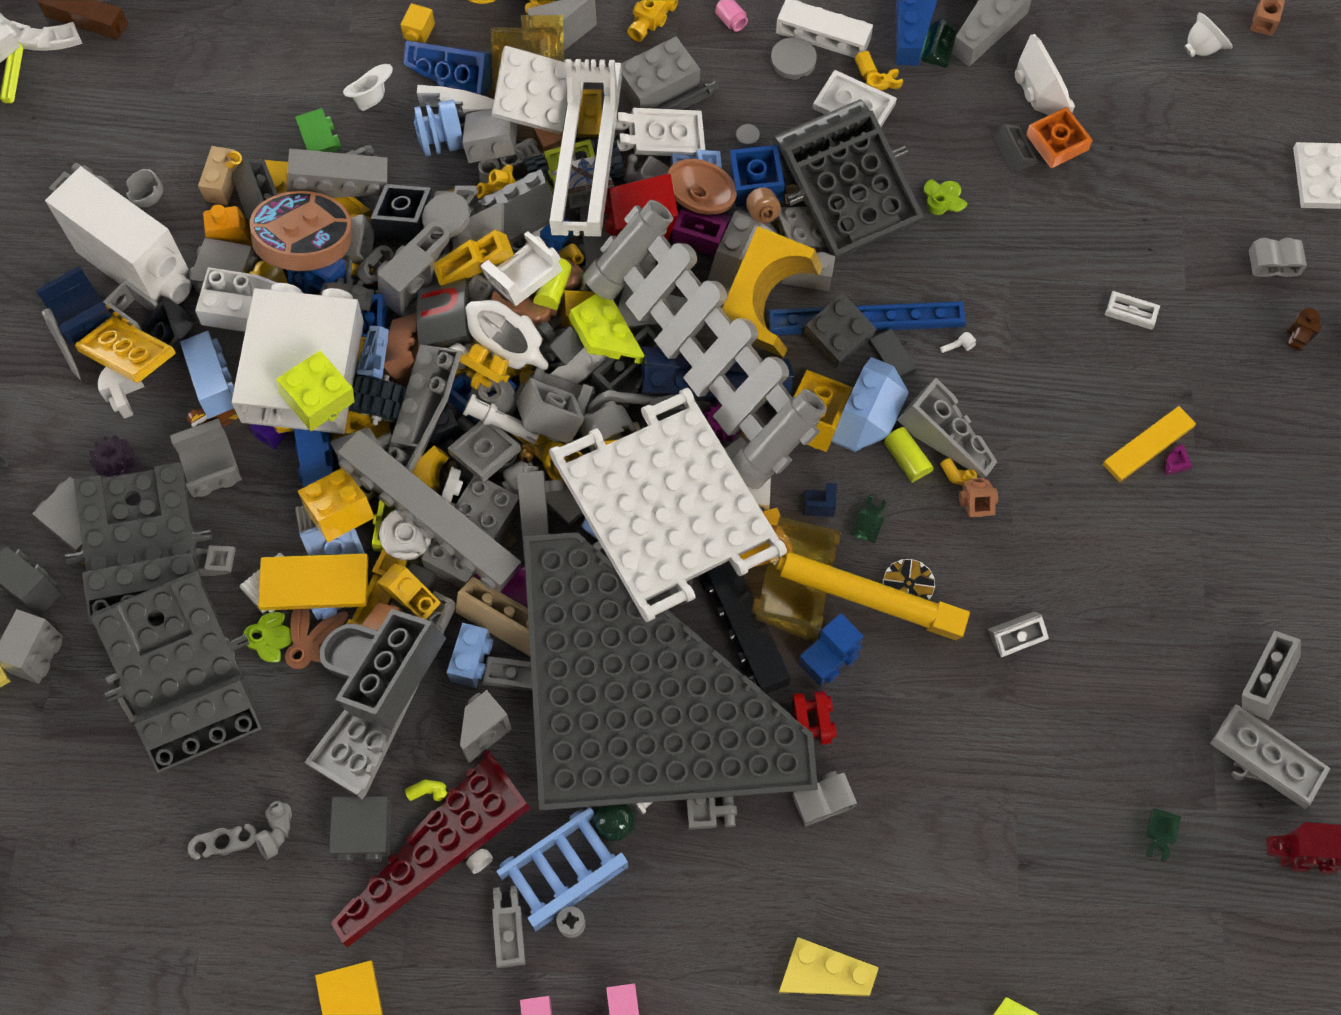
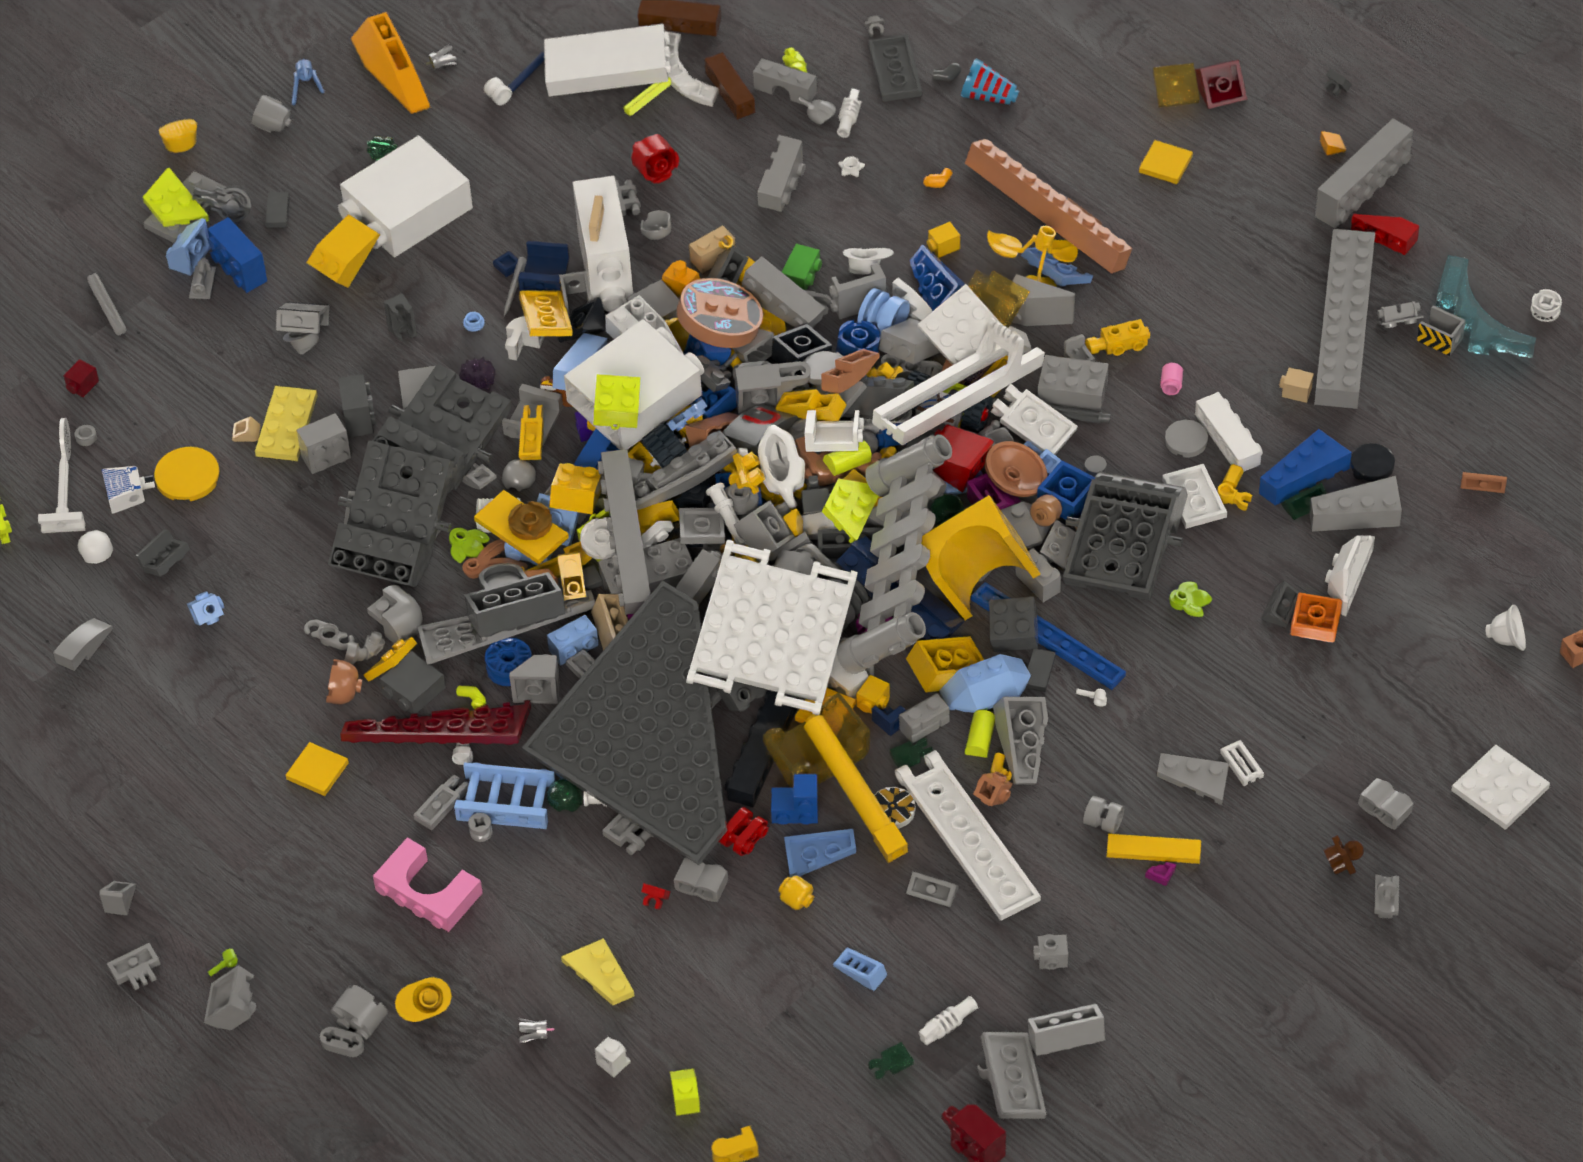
camera: 45 degrees right, 15 degrees down
(32, 326) = (506, 263): none -> dark blue tile
(53, 402) = (473, 321): none -> light blue plate
(70, 920) = (198, 608): none -> light blue brick
(81, 126) = (654, 158): none -> red brick
(109, 220) = (596, 218): none -> tan tile
(214, 61) = (783, 174): none -> light grey wedge
(232, 480) = (531, 434): none -> yellow hinge
(250, 528) = (518, 474): none -> light grey hair
(265, 8) = (851, 161): none -> white plate
(275, 767) = (397, 613): none -> light grey brick
(292, 886) = (343, 682): none -> nougat cylinder
(314, 818) = (391, 658): none -> yellow wing
(319, 570) = (530, 521): none -> pearl gold tile
(399, 127) = (849, 296): none -> light grey panel
(432, 742) = (504, 657): none -> blue wheel
(443, 167) = (857, 336): none -> blue brick
(479, 201) = (848, 371): none -> nougat slope
(562, 382) = (794, 522): none -> yellow slope
(632, 45) = (1076, 349): none -> light grey bracket
(788, 491) = (873, 693): none -> yellow brick
(797, 848) = (656, 893): none -> red tile
(853, 477) = (924, 718): none -> light grey brick
(890, 682) = (817, 850): none -> medium blue wing
(919, 739) = (796, 892): none -> yellow head
(1000, 559) = (969, 837): none -> white hinge
(1041, 774) = (871, 978): none -> light blue slope
(1091, 445) = (1096, 812): none -> light grey wheel
(1110, 349) = (1200, 775): none -> light grey wing
(1164, 750) = (947, 1021): none -> white hinge
(1181, 610) = (1051, 951): none -> light grey brick

